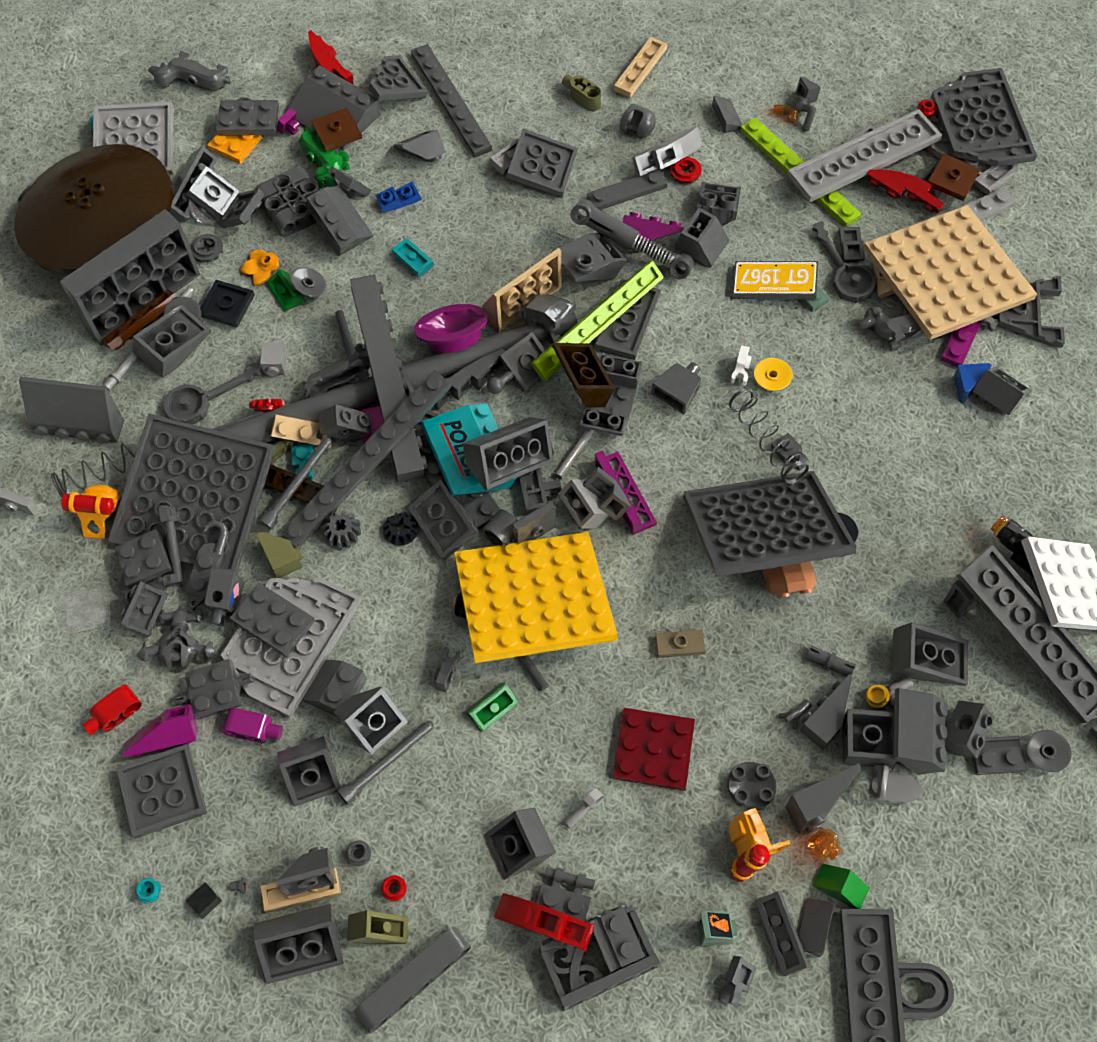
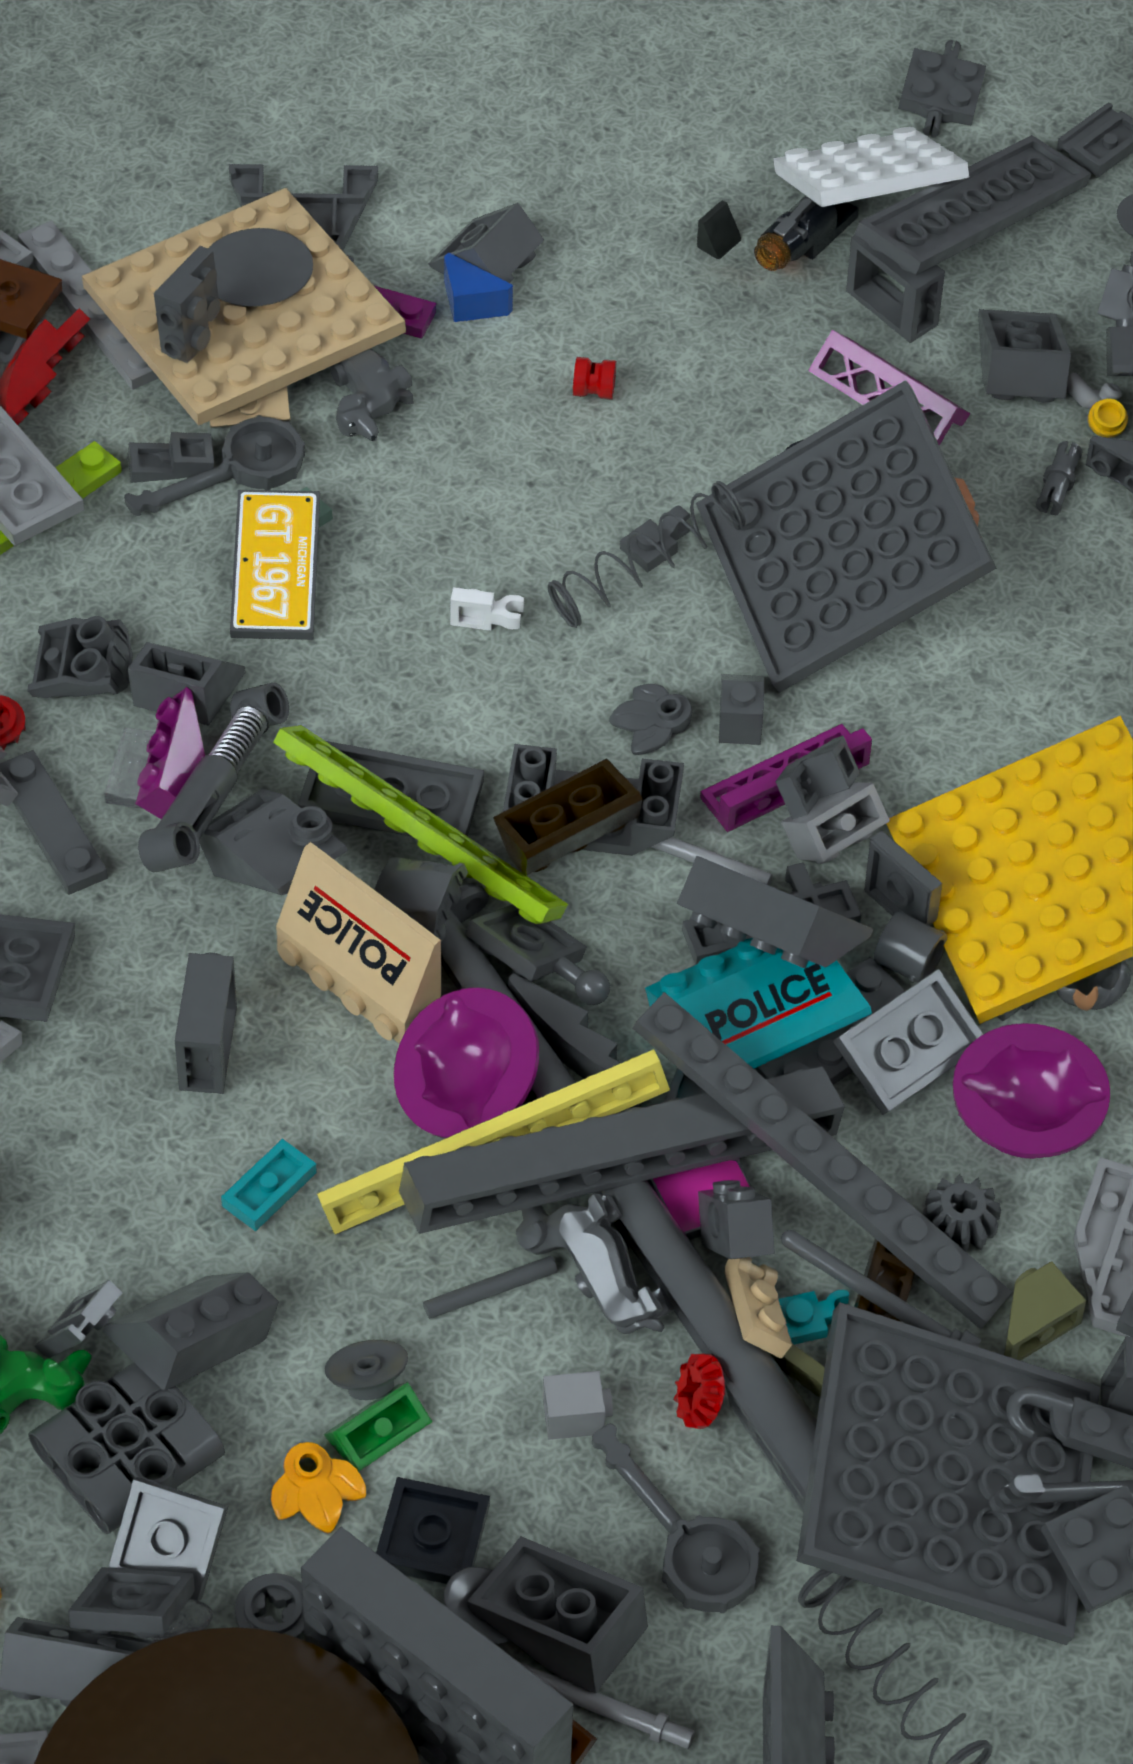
camera: 100 degrees left, 10 degrees down
(94, 504) = (1006, 1661): light orange piece -> none
(394, 199) = (94, 1238): blue slope -> none
(402, 568) = (1031, 1090): none -> magenta piece
(405, 327) = (595, 1096): none -> light yellow plate
(406, 535) = (915, 1129): black gear -> none
(494, 242) = (206, 1023): none -> dark grey window
(668, 435) = (650, 717): none -> dark grey plate
(672, 474) = (741, 709): none -> dark grey slope
(678, 386) = (544, 700): dark grey torso -> none
(680, 643) = (1073, 679): dark tan plate -> none
(776, 368) = (498, 561): yellow piece -> none
(905, 431) = (594, 378): none -> red wheel
(905, 581) = (883, 371): none -> fence
(925, 228) = (187, 305): none -> dark grey plate
(970, 272) = (260, 266): none -> dark grey sticker
(1024, 506) = (717, 231): none -> pearl dark grey slope

